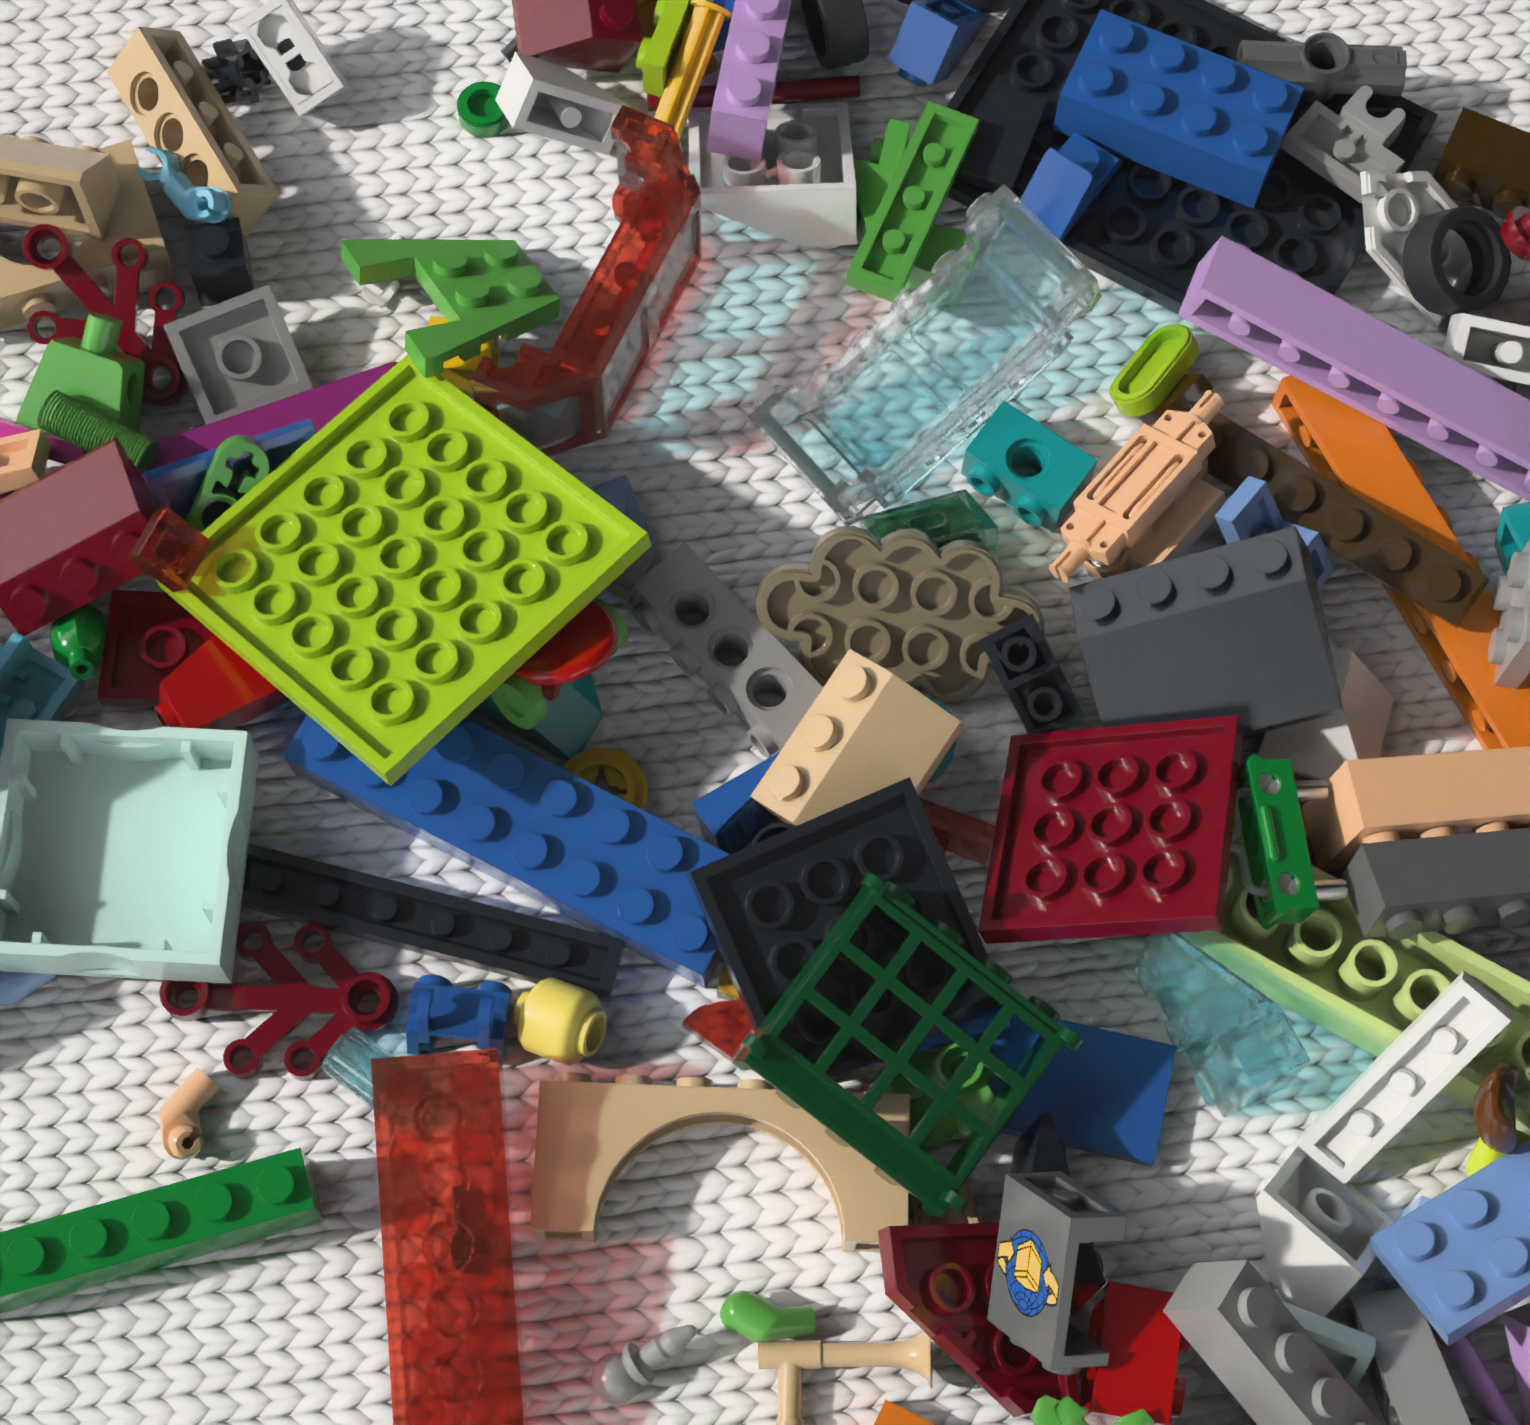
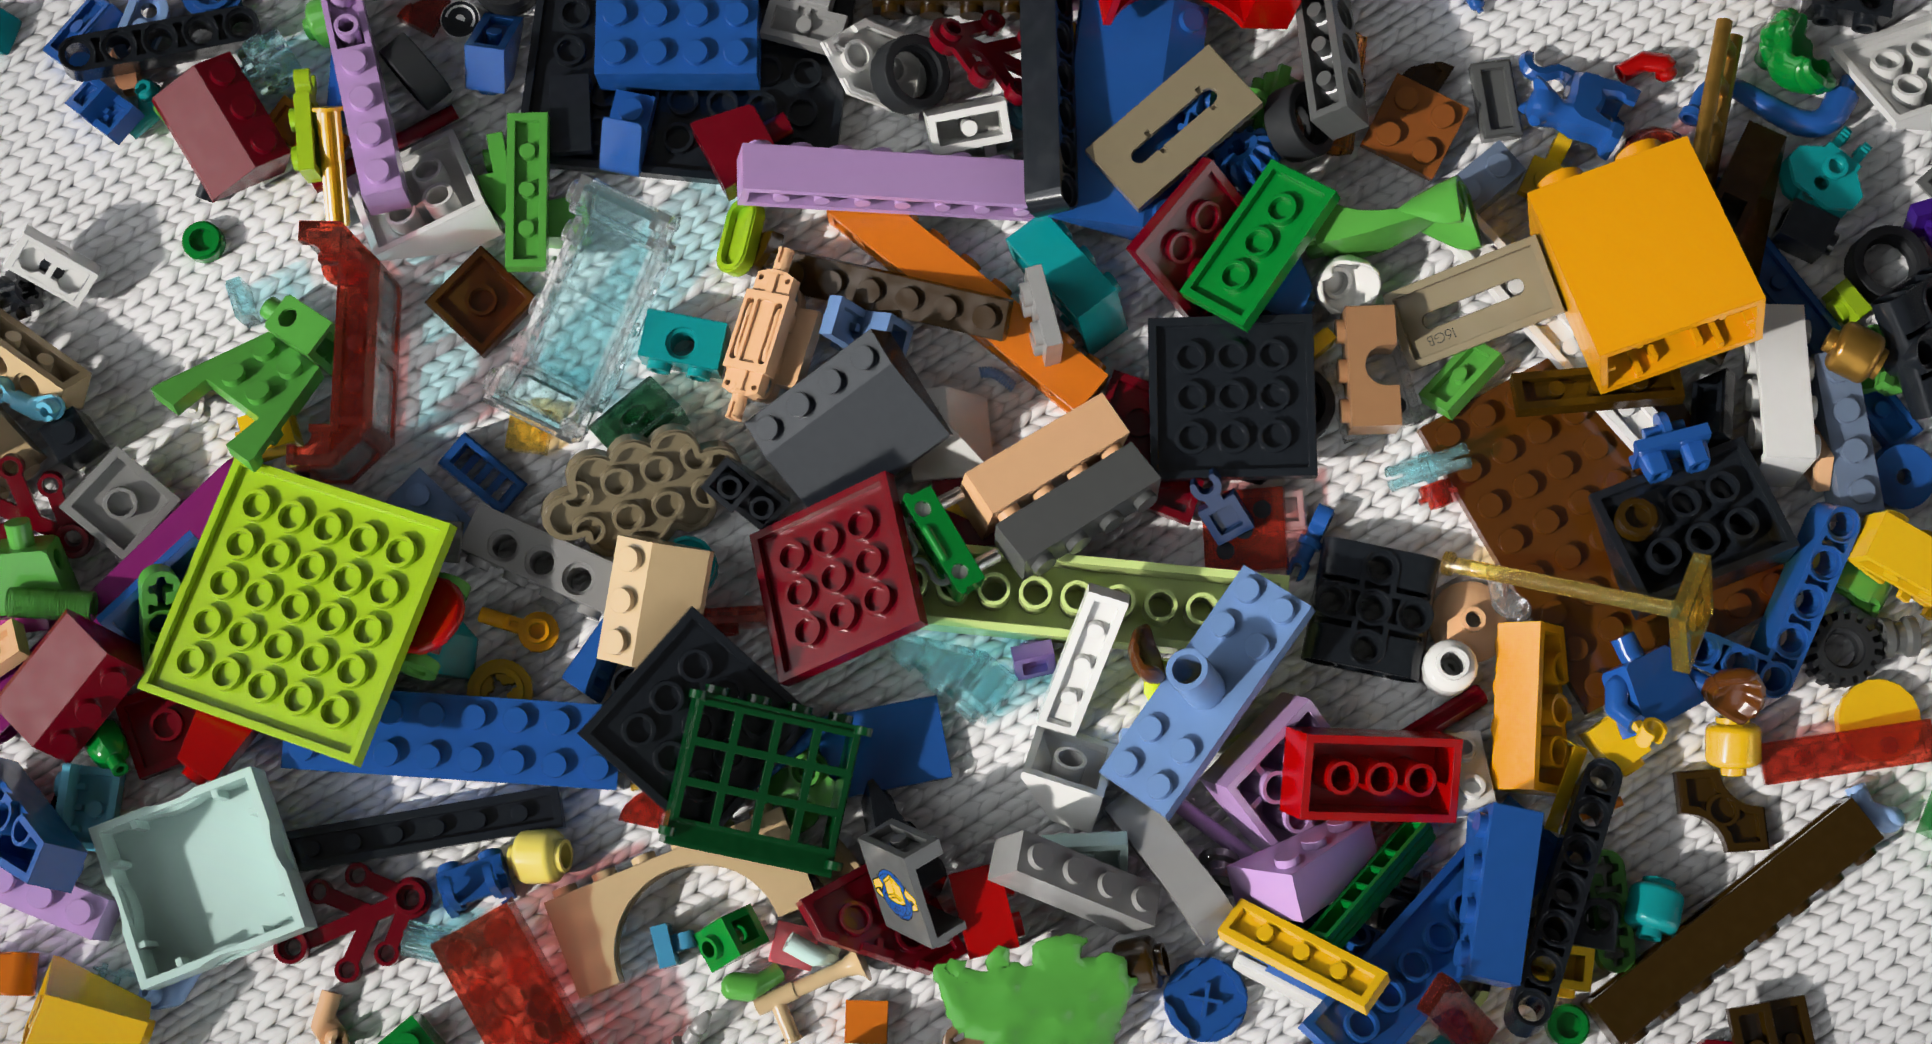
camera: 20 degrees left, 10 degrees up
(170, 549) = (140, 670): clear red plate -> none
(500, 192) = (243, 302): none -> clear light blue tile
(556, 241) = (301, 329): none -> bright green torso
(557, 104) = (253, 221): white slope -> none
(681, 1215) = (669, 944): none -> dark azure tile
(682, 736) = (536, 631): none -> light orange plate
(699, 470) = (455, 452): none -> blue slope
(755, 1239) = (731, 938): none -> green brick
(779, 493) = (526, 438): none -> clear yellow plate
(791, 315) = (481, 301): none -> reddish brown tile
(845, 1294) = (782, 932): none -> coral slope
(867, 1314) = (810, 952): none -> light aqua arm
(1179, 239) = (723, 135): none -> dark red torso
(1333, 1055) = (1033, 659): none -> medium lavender plate
(1411, 672) = (993, 373): none -> light blue leg

